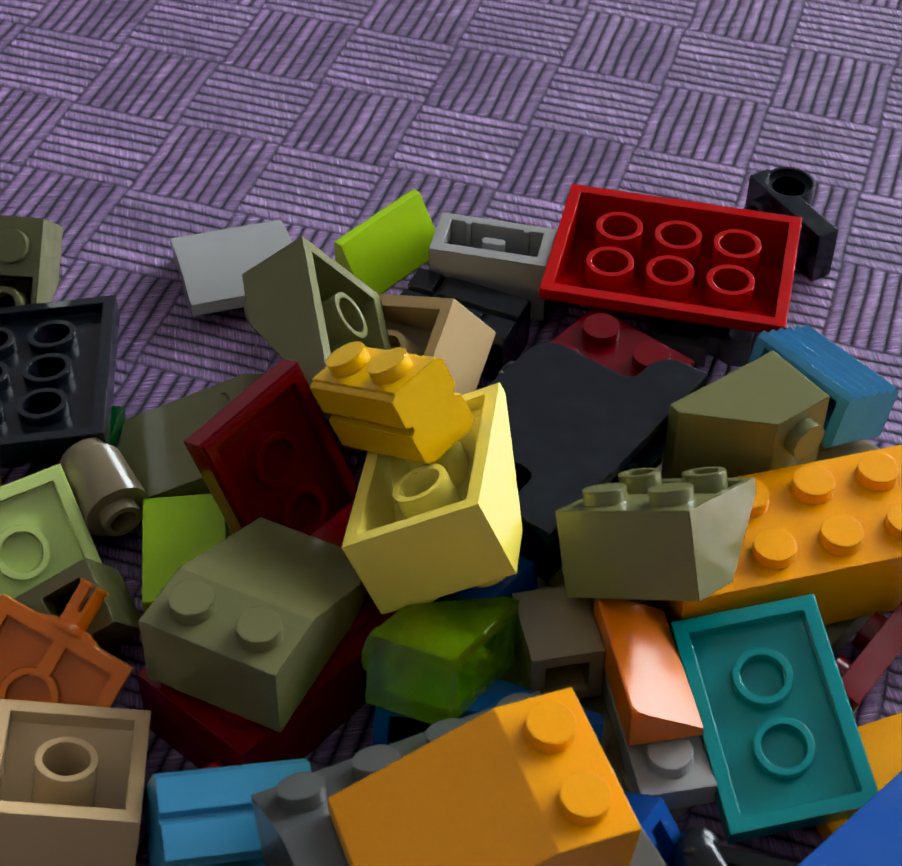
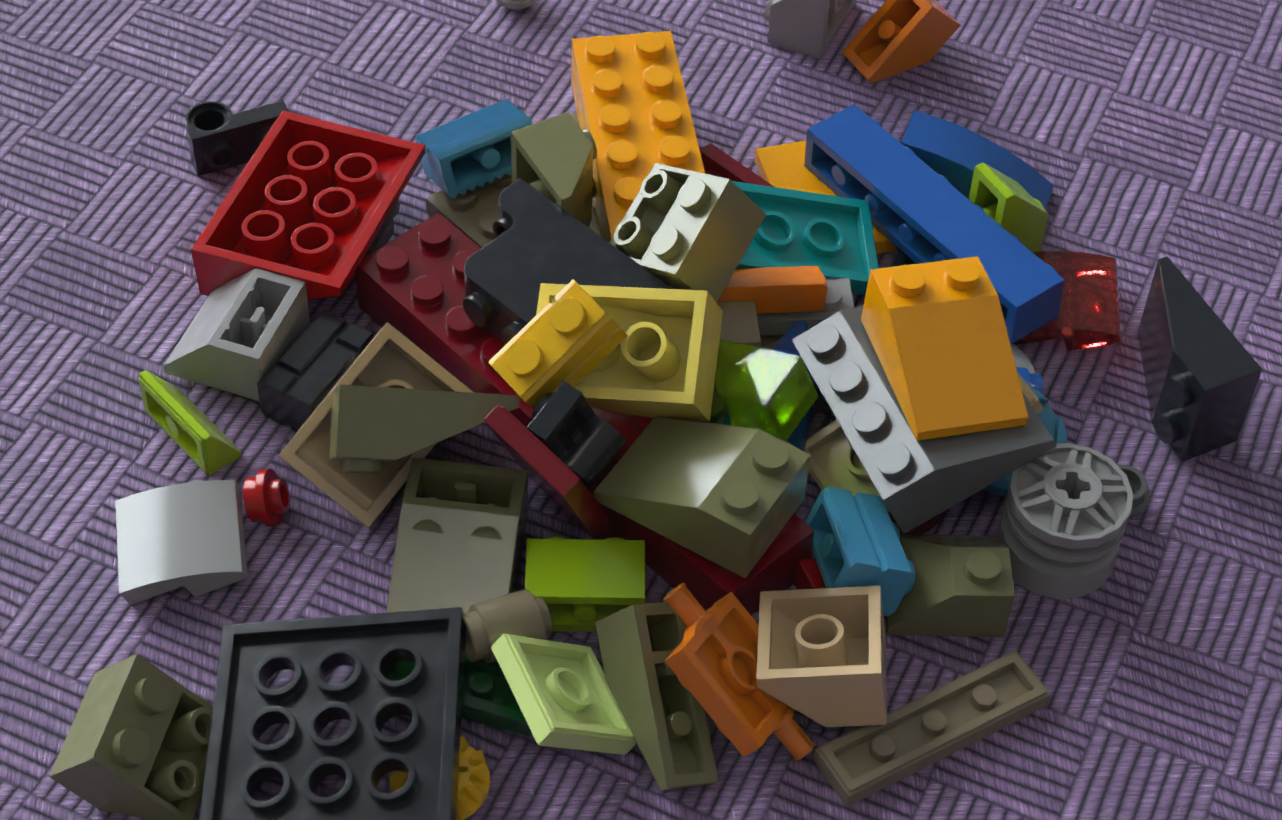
camera: 85 degrees left, 5 degrees up
(317, 473) = (575, 433): none -> black plate

